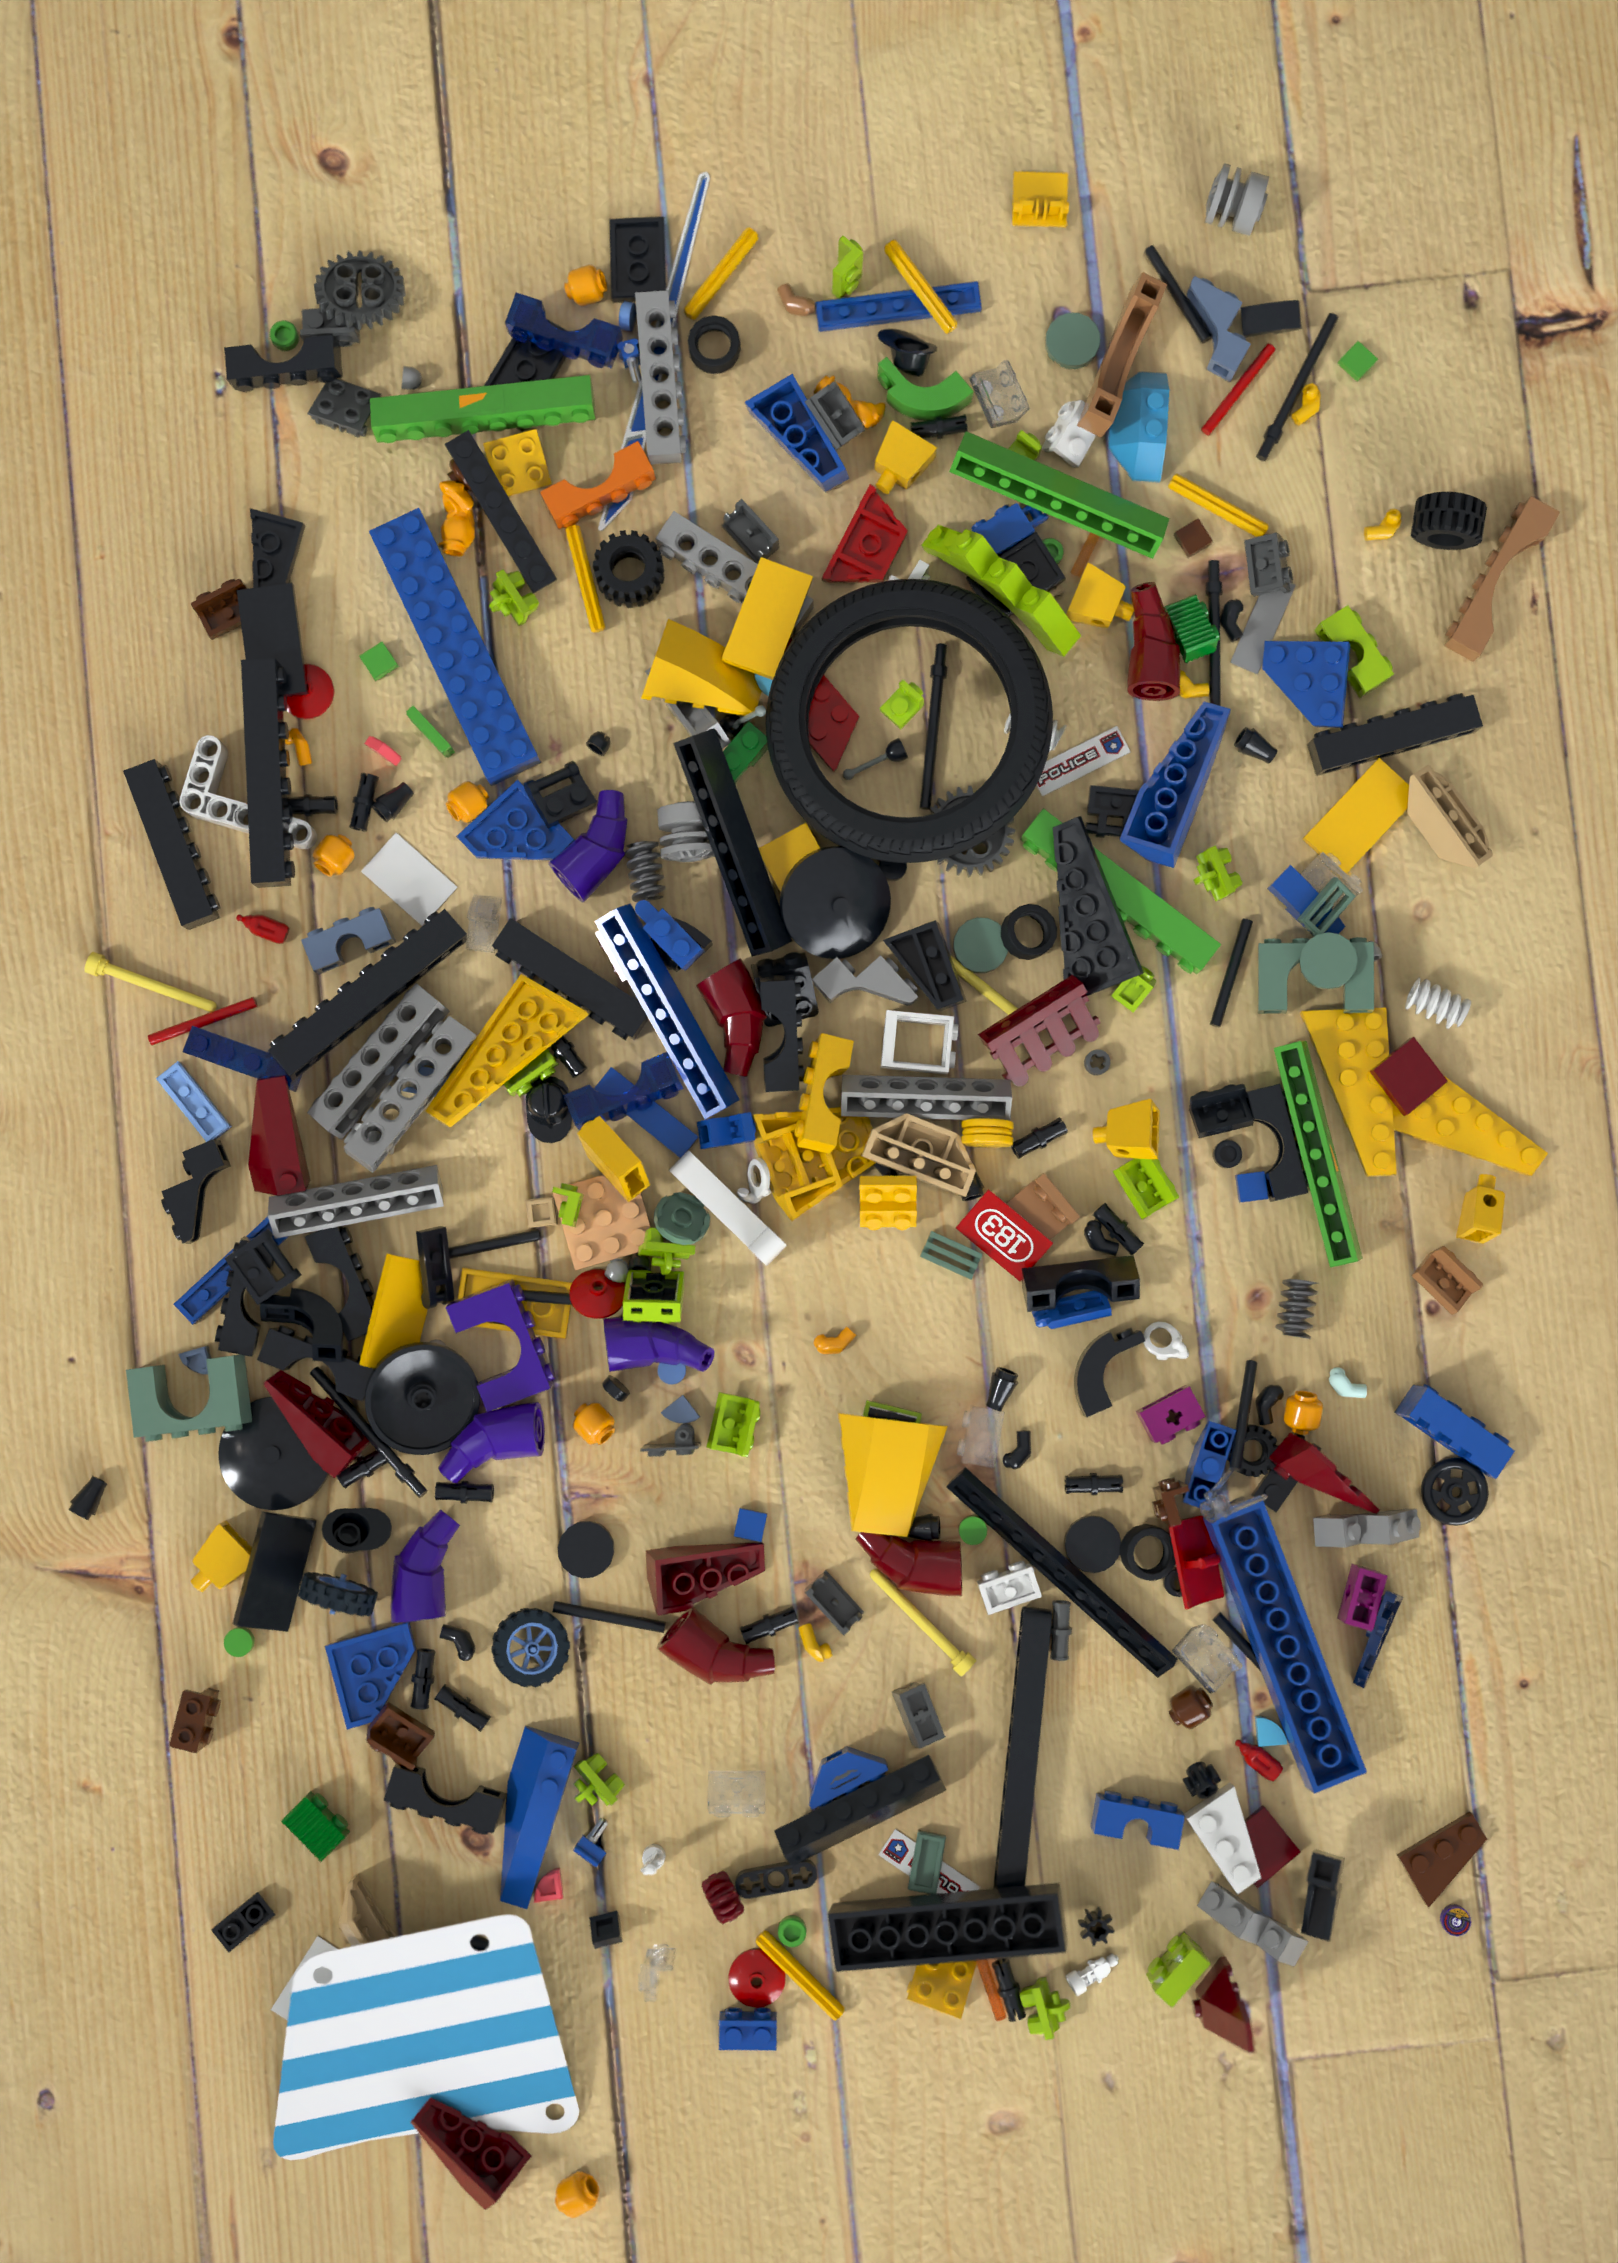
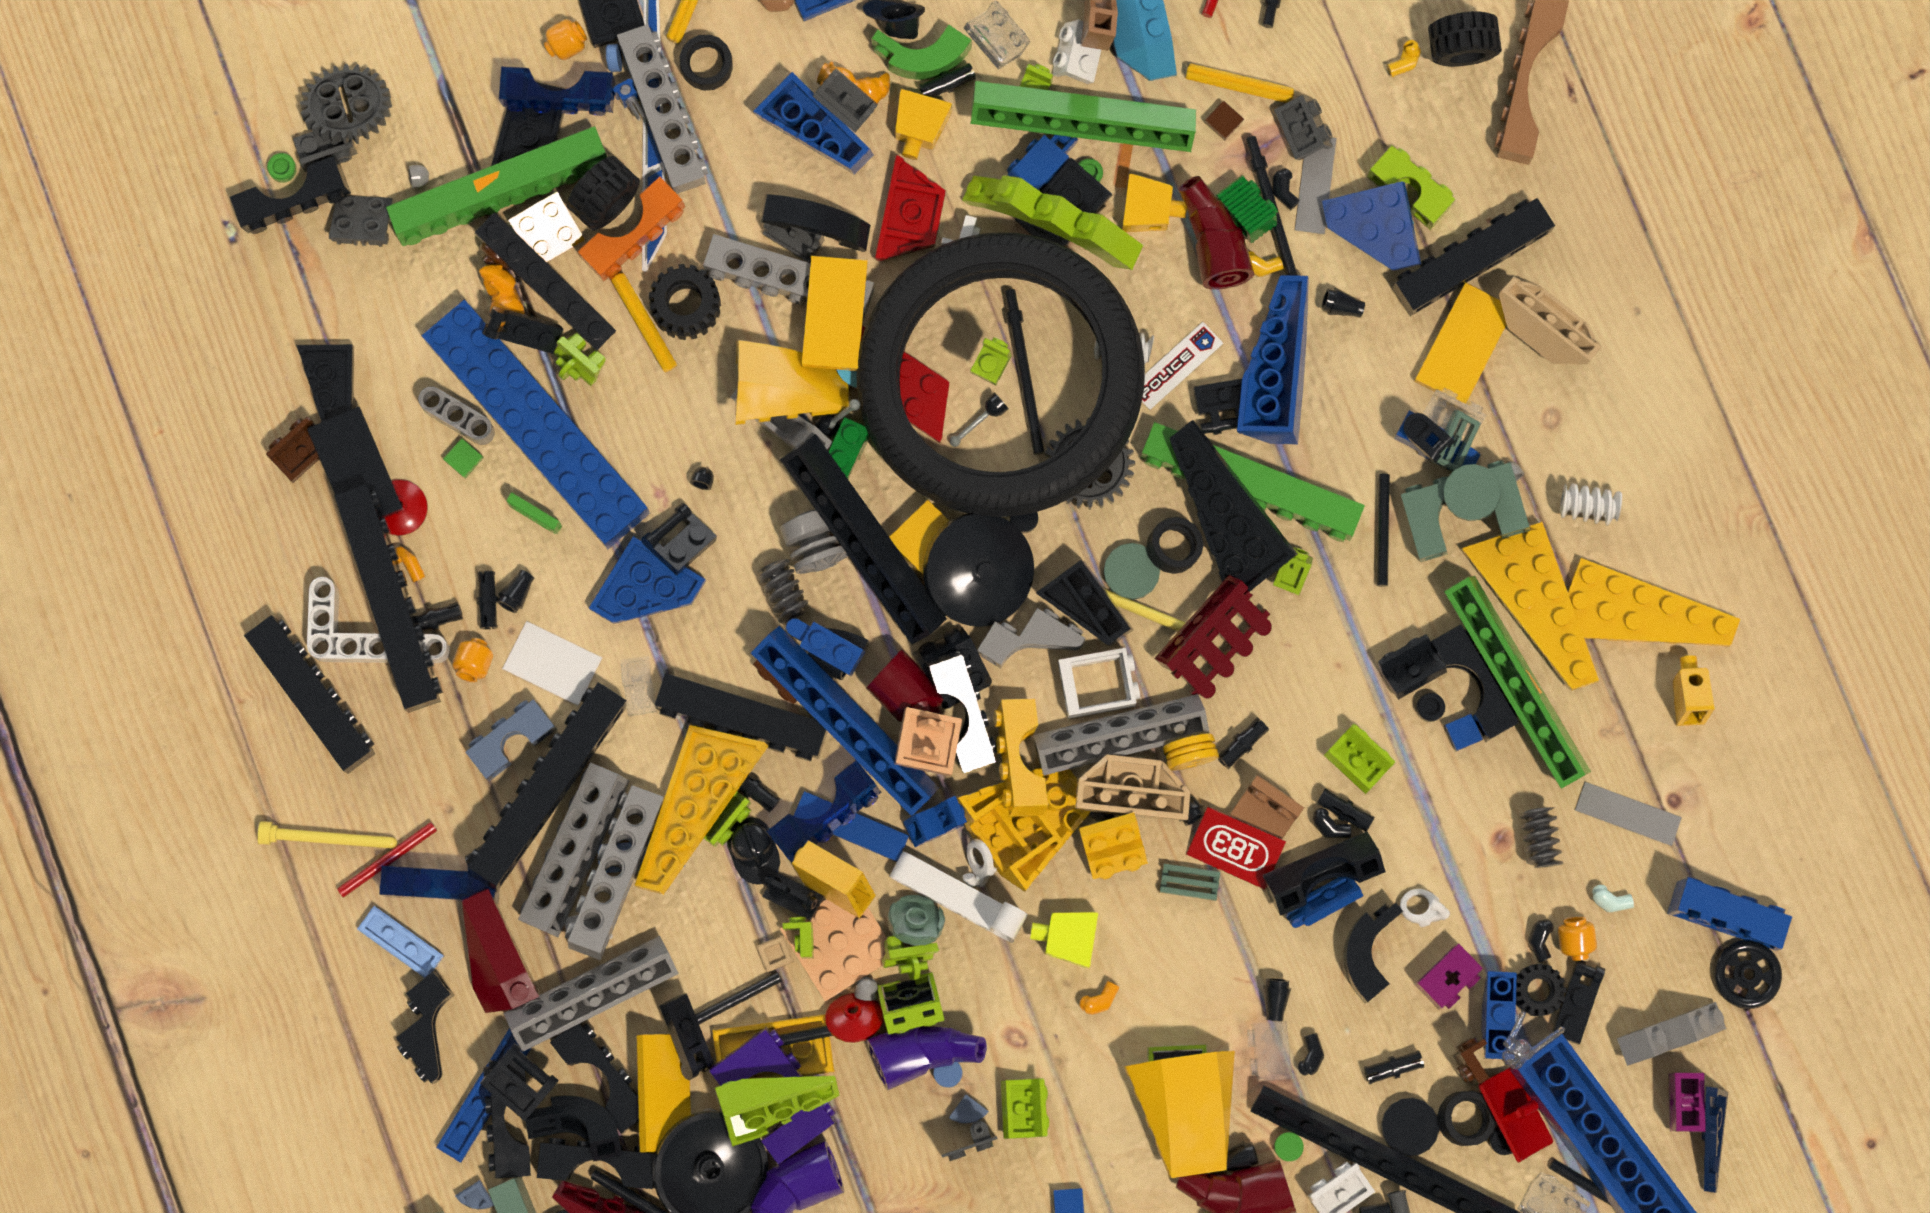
camera: 15 degrees left, 5 degrees down
(265, 927) = (424, 750): red piece -> none
(373, 609) = (449, 404): none -> light grey beam
(383, 750) = (492, 544): coral tile -> none
(466, 552) = (523, 330): none -> black plate
(467, 801) = (589, 571): light orange head -> none
(478, 1351) = (759, 1103): none -> lime wedge
(572, 1162) = (792, 895): none -> black hinge
(579, 441) = (603, 193): none -> black tyre
(593, 1423) = (886, 1147): light orange head -> none
(594, 853) = (730, 586): dark purple piece -> none
(615, 1388) = (898, 1106): black tile -> none
(639, 1262) = (886, 975): black hinge -> none
(739, 1053) = (928, 741): none -> light nougat plate
(776, 523) = (816, 218): none -> black slope
(821, 1274) = (1068, 936): none -> neon yellow torso
(1096, 1071) = (1278, 662): dark grey bush -> none
(1131, 1130) = (1330, 710): yellow torso -> none
(1214, 873) = (1338, 439): lime hips -> none
(1243, 1415) = (1519, 957): black bar -> none
(1295, 885) = (1419, 428): none -> black plate
(1312, 1468) = (1595, 986): dark red wedge -> none
(1385, 1307) = (1628, 813): none -> light grey sticker
(1408, 1076) = (1582, 582): dark red tile -> none
(1447, 1279) = (1678, 768): medium nougat bracket -> none

